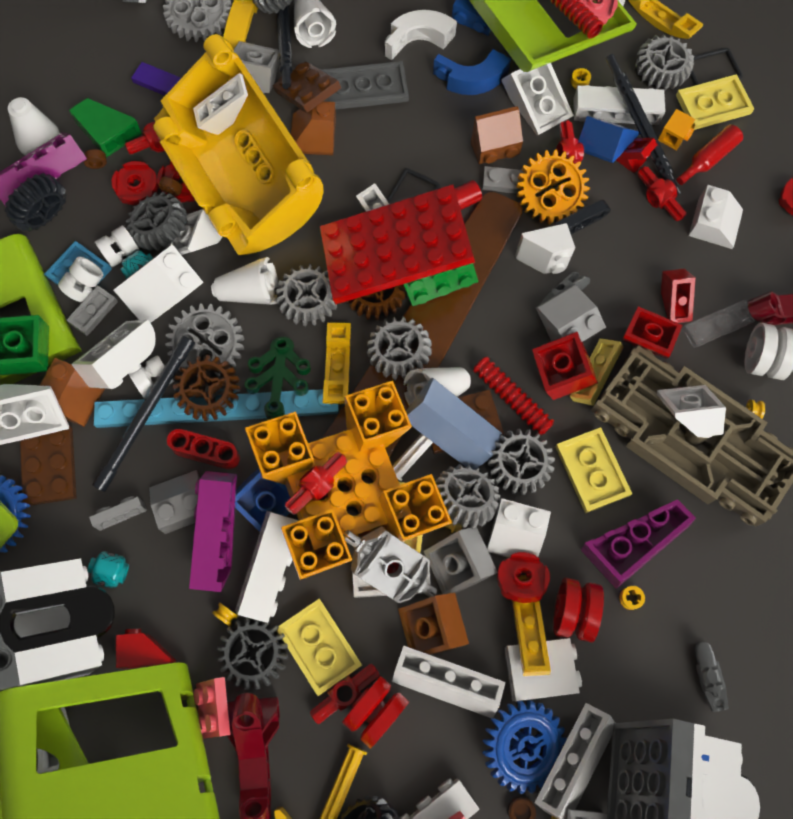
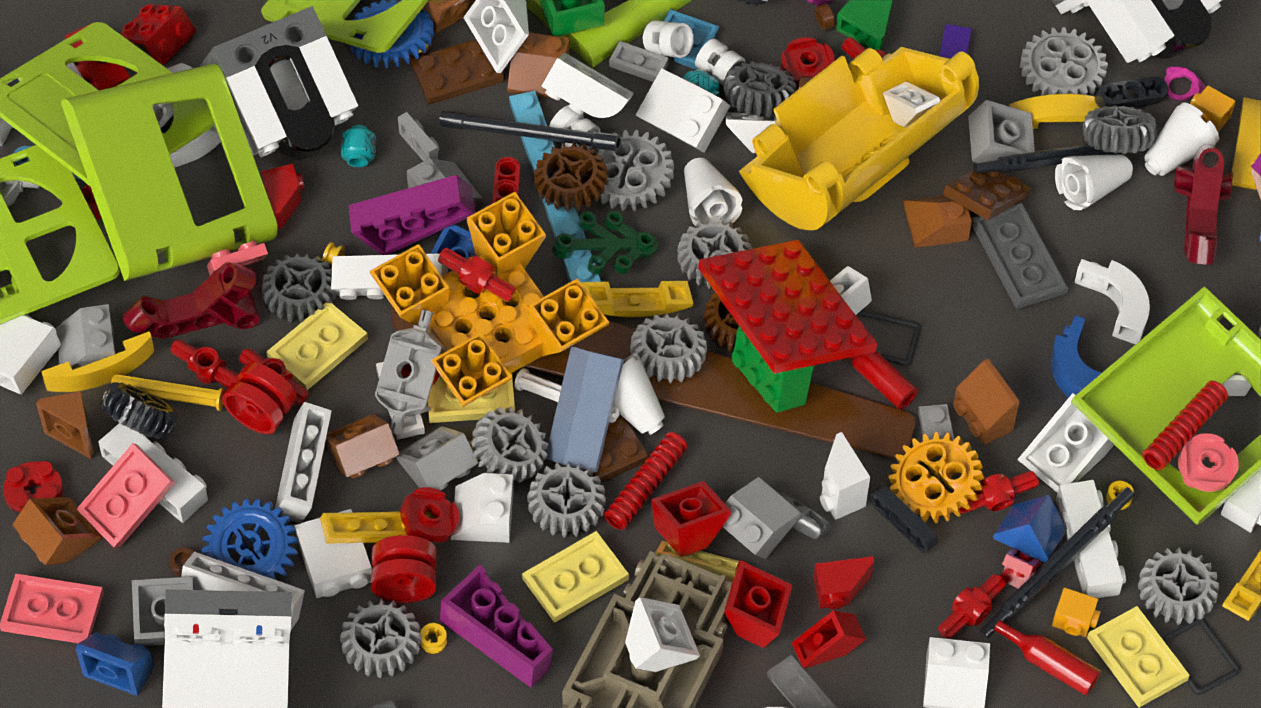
camera: 80 degrees right, 15 degrees down
(307, 767) = (202, 356): none -> red axle
(629, 274) = (841, 580): none -> red slope
(641, 625) = (371, 625): none -> light grey gear

